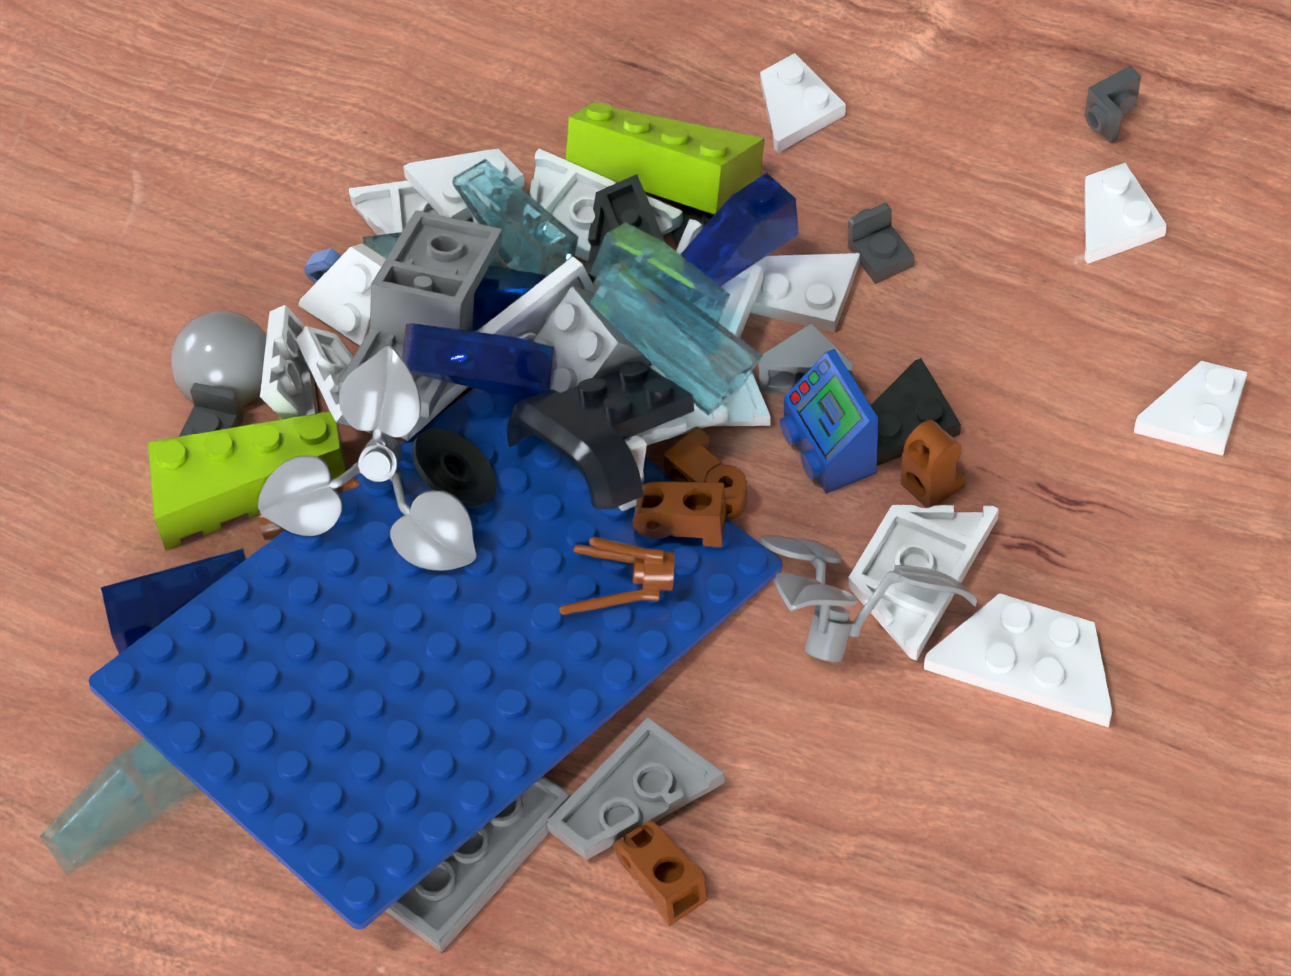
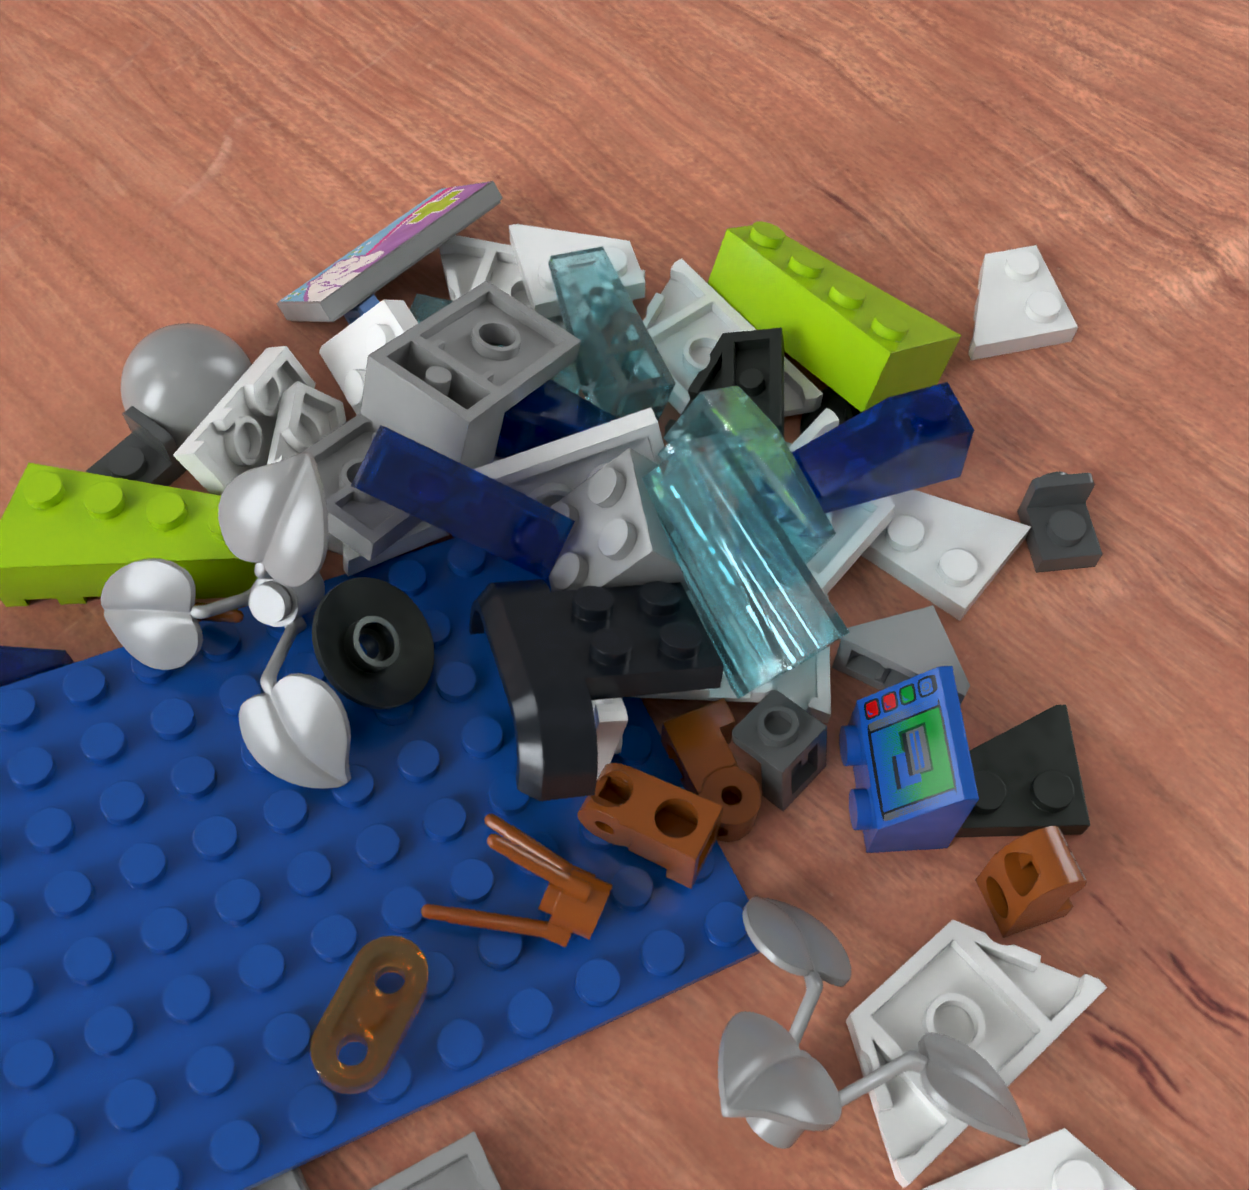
camera: 15 degrees right, 5 degrees up
(320, 215) = (389, 253): none -> tile
(559, 670) = (369, 1016): none -> clear orange plate
(750, 440) = (785, 743): none -> dark grey bracket

